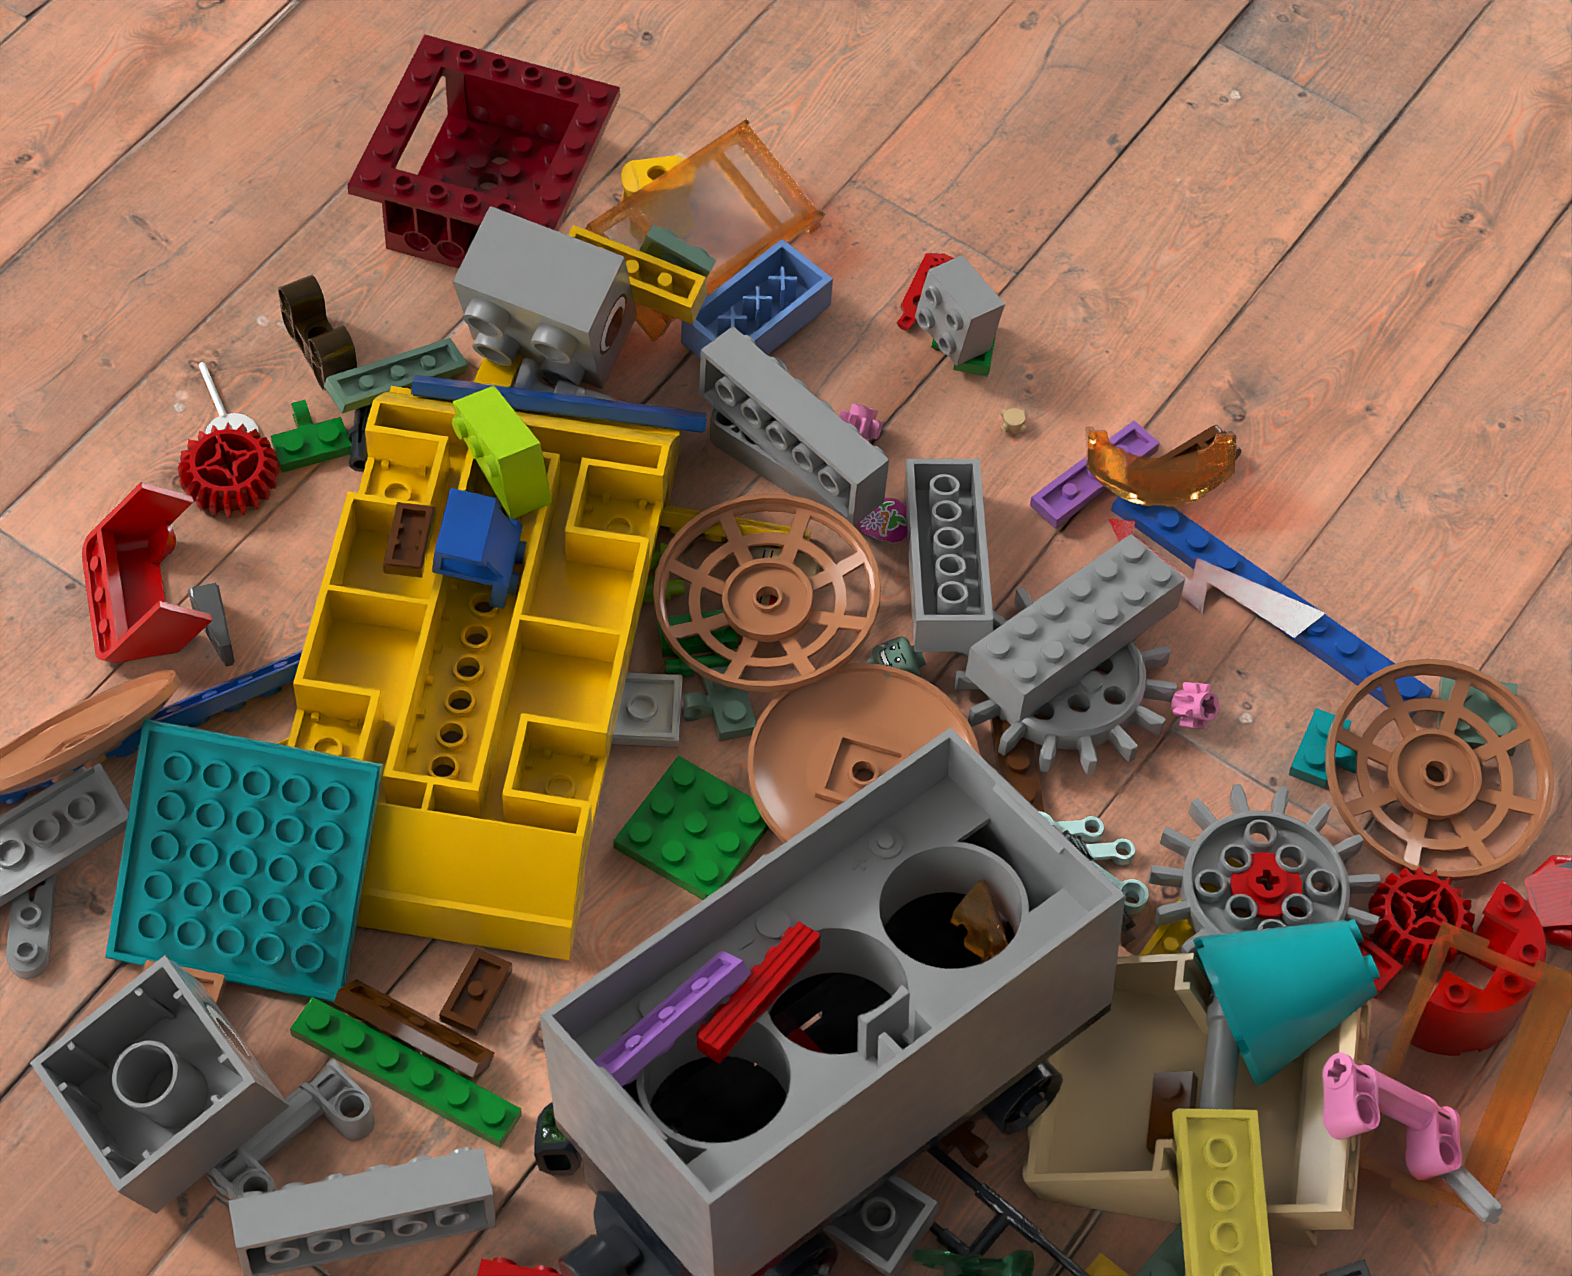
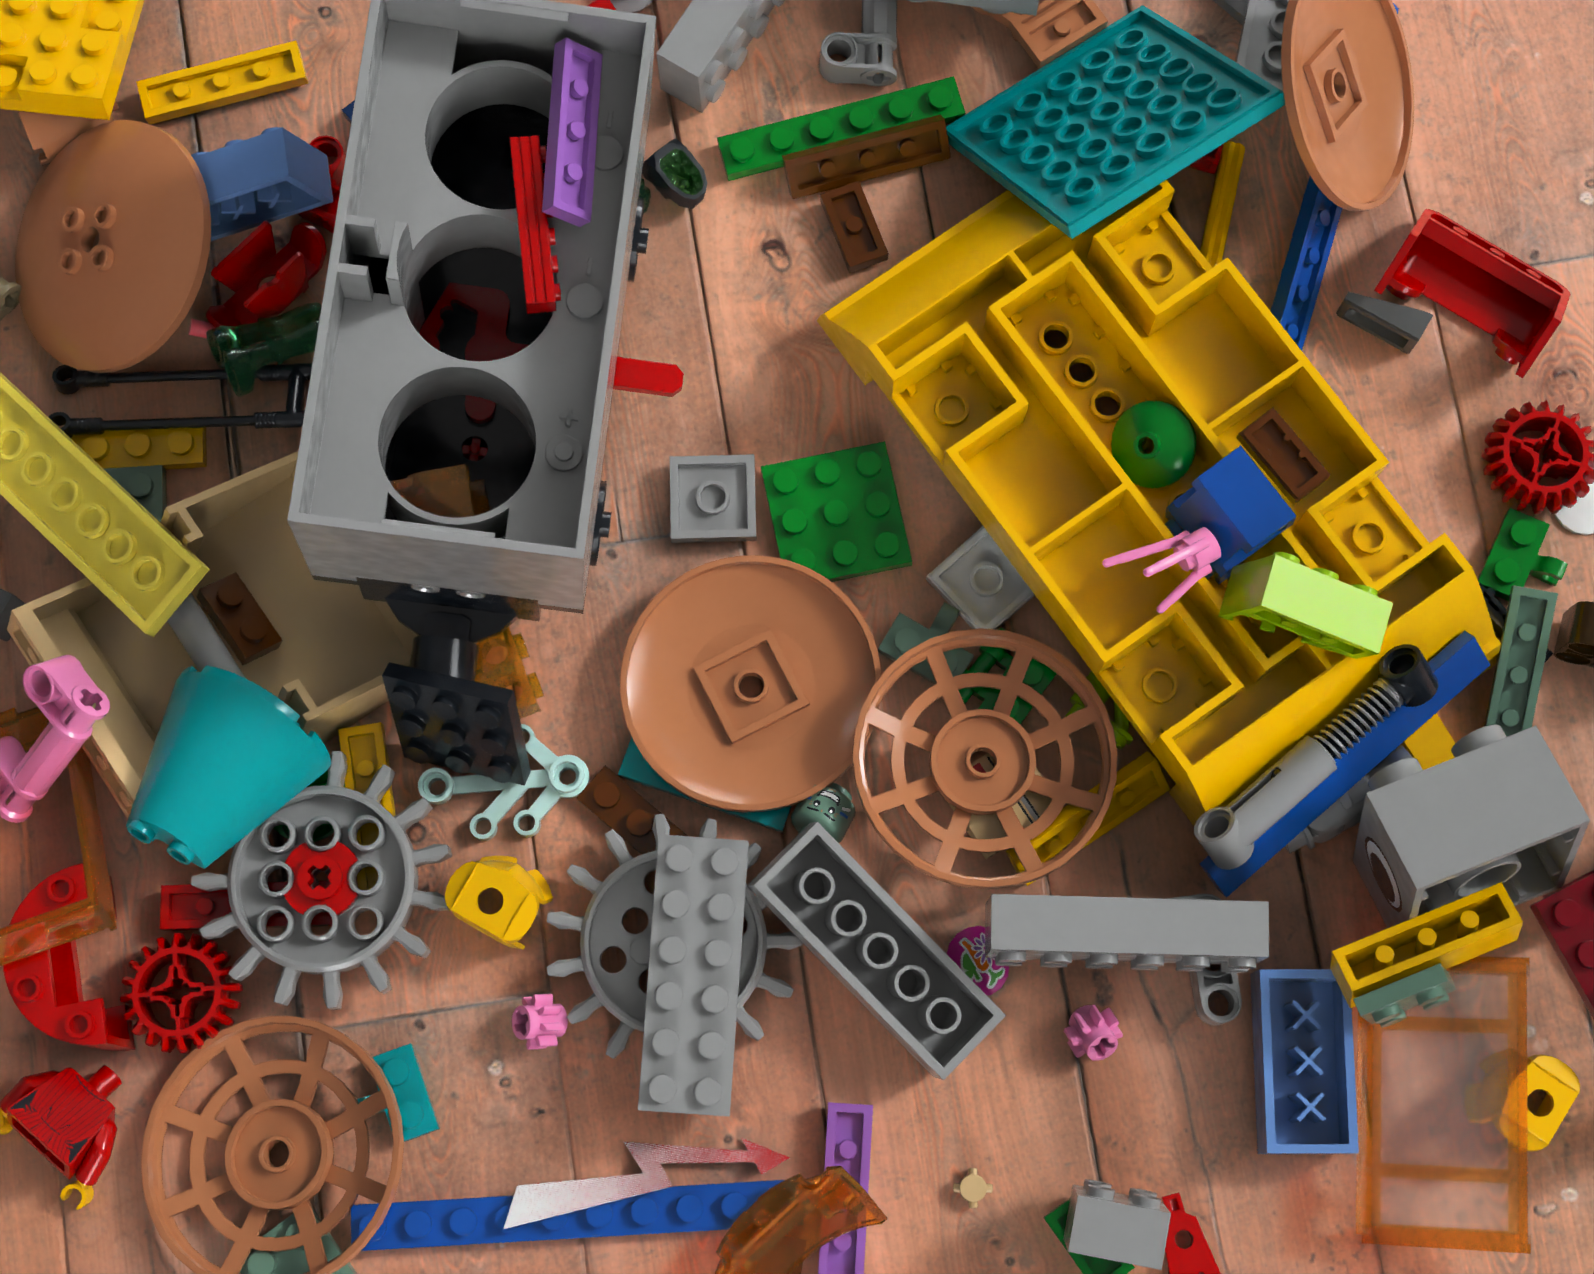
camera: 140 degrees right, 20 degrees up
(455, 646) = (1172, 440): none -> green dish
(529, 536) = (1191, 552): none -> bright pink plant
(594, 403) = (1231, 830): none -> piece
(1145, 789) = (520, 892): none -> yellow piece

